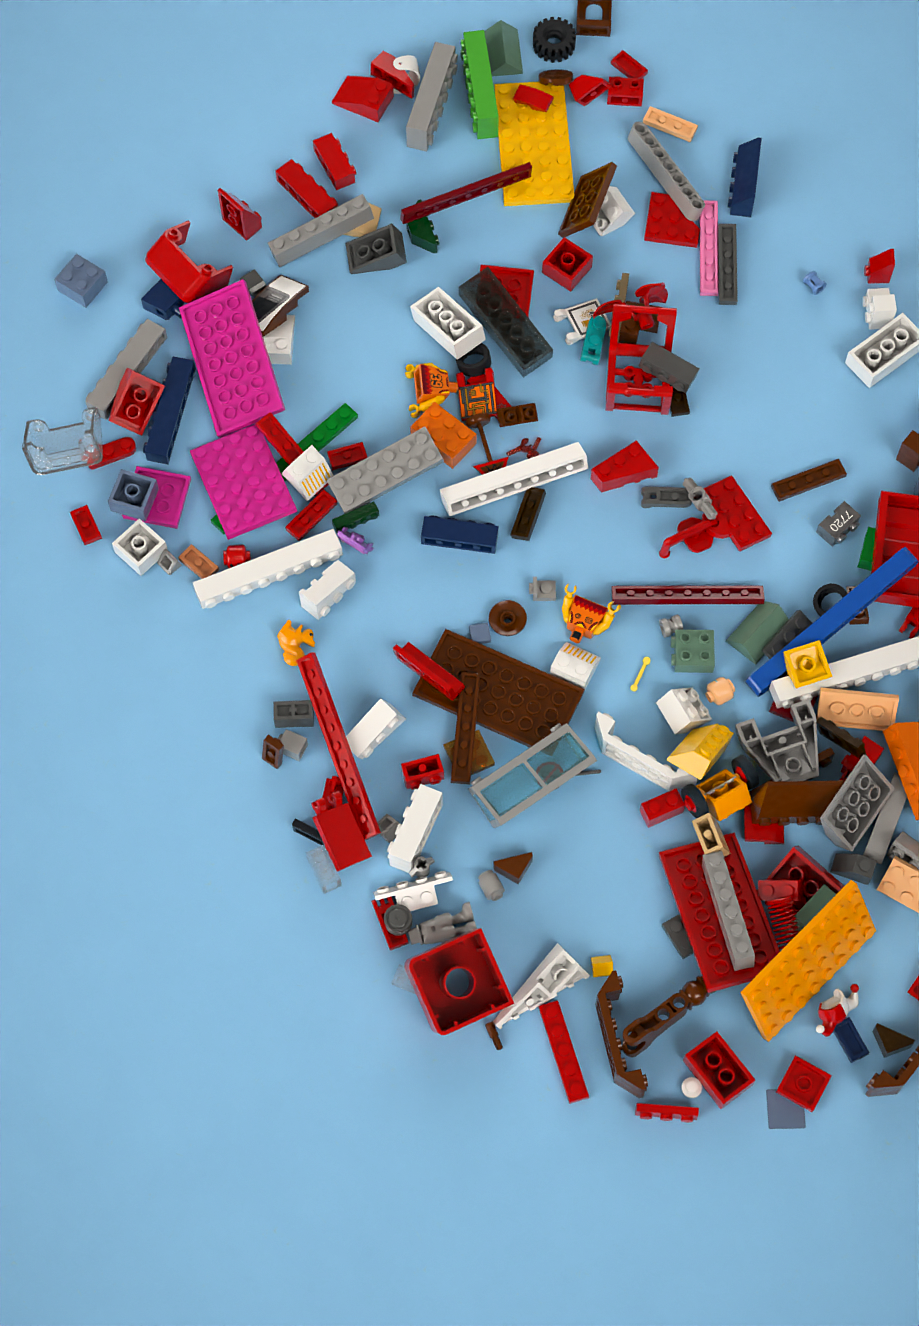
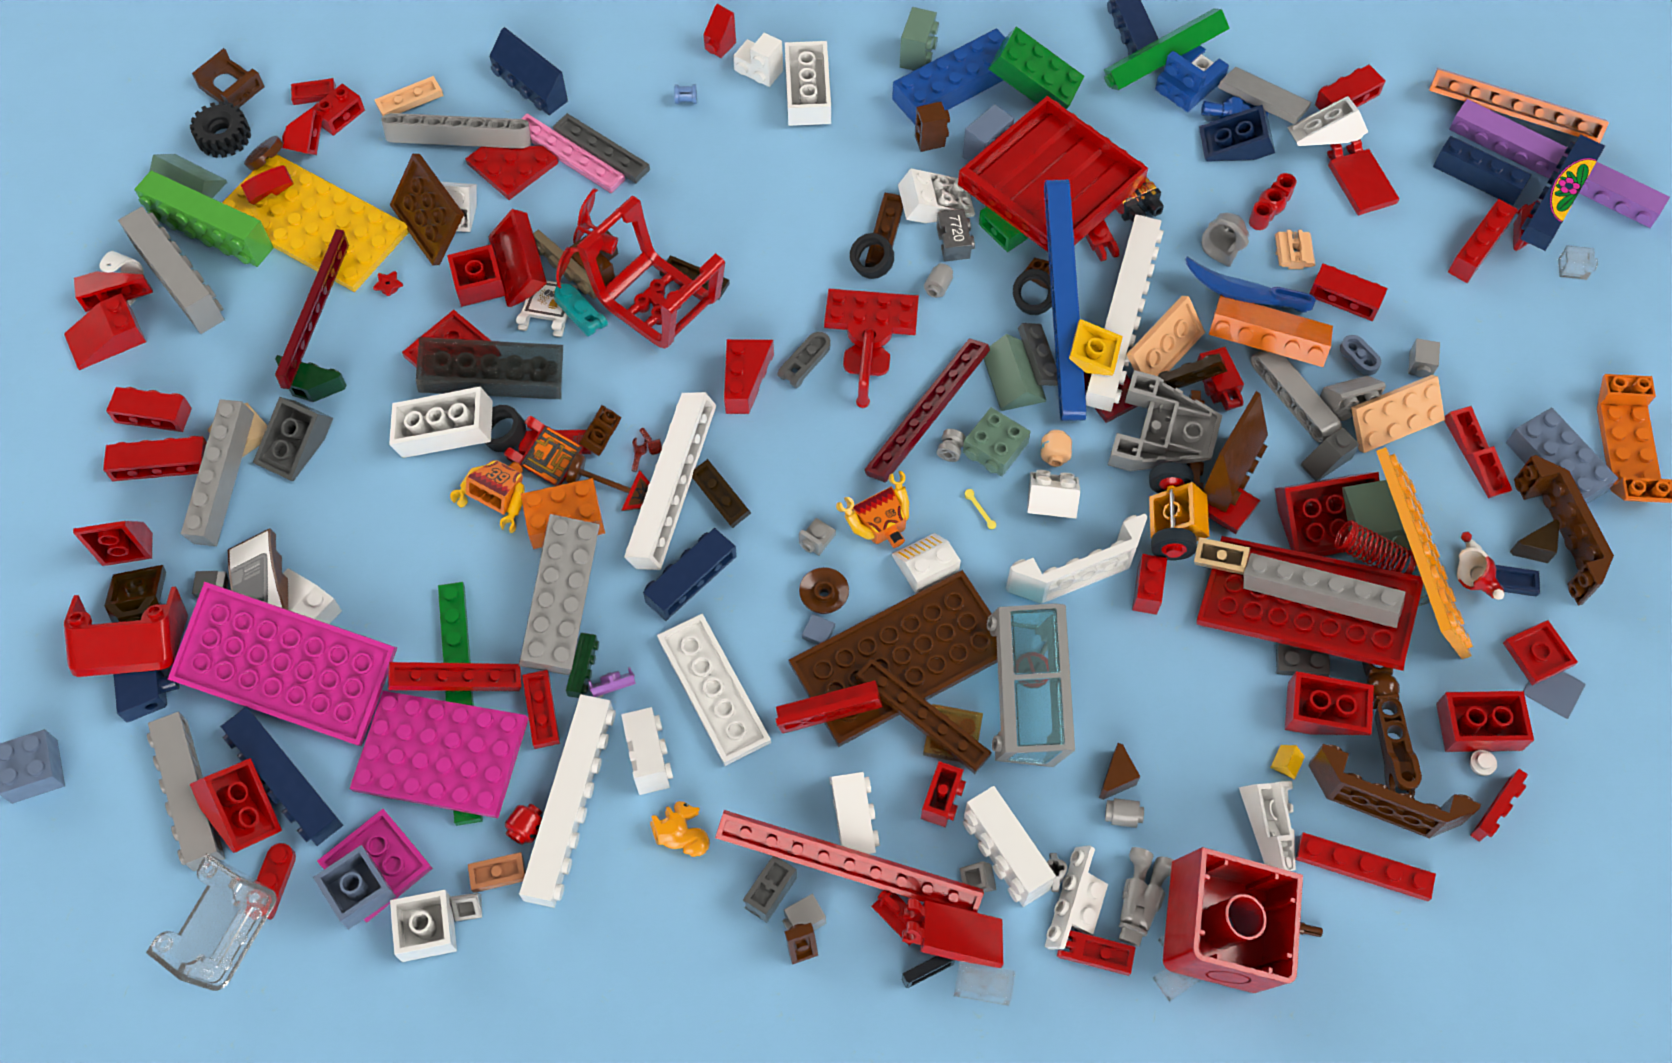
camera: 55 degrees left, 5 degrees down
(85, 525) = (339, 972): red plate -> none
(215, 249) = (134, 592): none -> dark brown plate
(308, 473) = (492, 674): white slope -> none
(346, 456) = (502, 625): red plate -> none
(395, 600) = (714, 689): none -> white plate
(398, 919) = (1106, 939): dark grey wheel -> none
(523, 223) = (390, 288): none -> red plate
(600, 277) = (517, 257): none -> red slope
(654, 965) = (1328, 706): none -> red slope
(668, 367) = (670, 261): dark grey brick -> none
(701, 749) = (1120, 499): yellow slope -> none
(703, 504) = (827, 324): light grey axle -> none
(777, 888) = (1320, 531): red brick -> none
(784, 493) = (861, 244): none -> black tyre
(793, 538) = (938, 280): none -> light grey brick
(856, 804) = (1279, 408): light grey slope -> none
(859, 489) = (929, 193): none -> white slope

